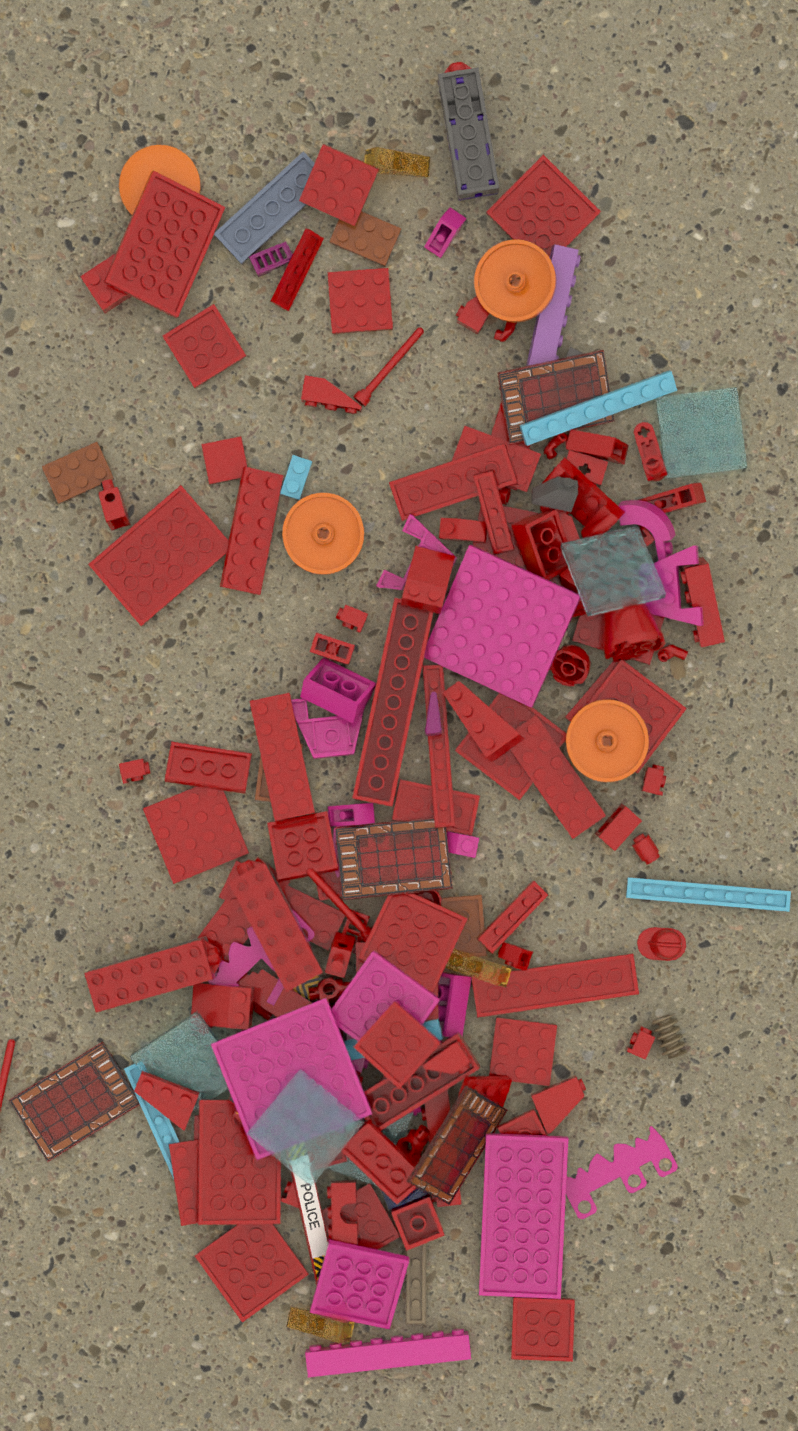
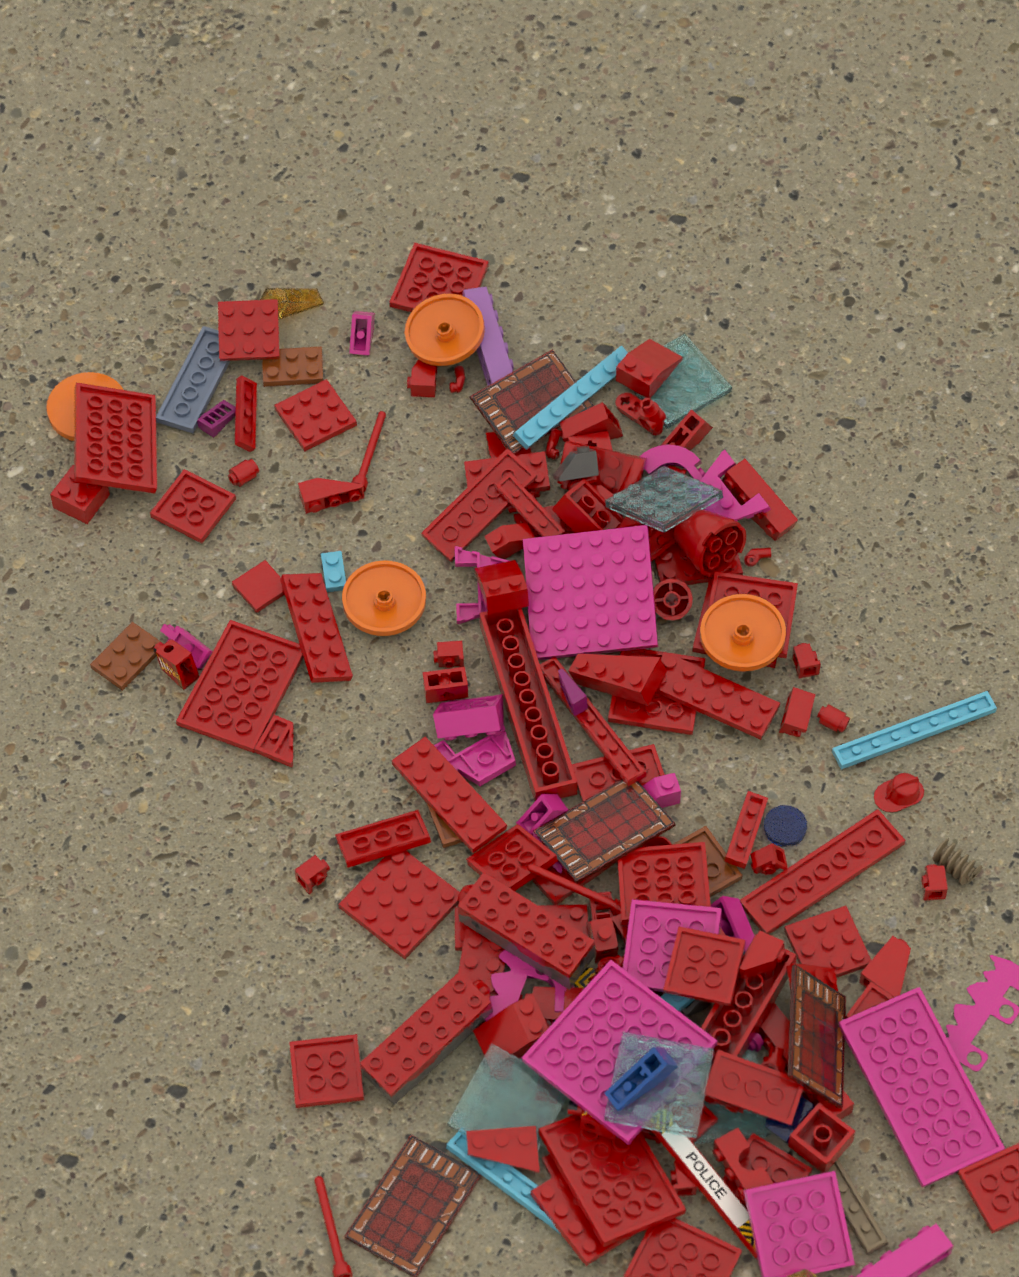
camera: 30 degrees left, 30 degrees down
(61, 954) = (326, 1071): none -> red plate
(132, 490) = (181, 636): none -> dark pink hinge
(166, 627) = (277, 741): none -> red wing
(264, 333) = (243, 472): none -> red brick
(289, 1124) = (641, 1078): none -> blue slope
(468, 132) = (341, 251): dark grey piece -> none
(479, 968) = (743, 882): clear yellow slope -> none
(549, 925) = (785, 825): none -> clear blue tile
(682, 410) = (647, 367): none -> red slope

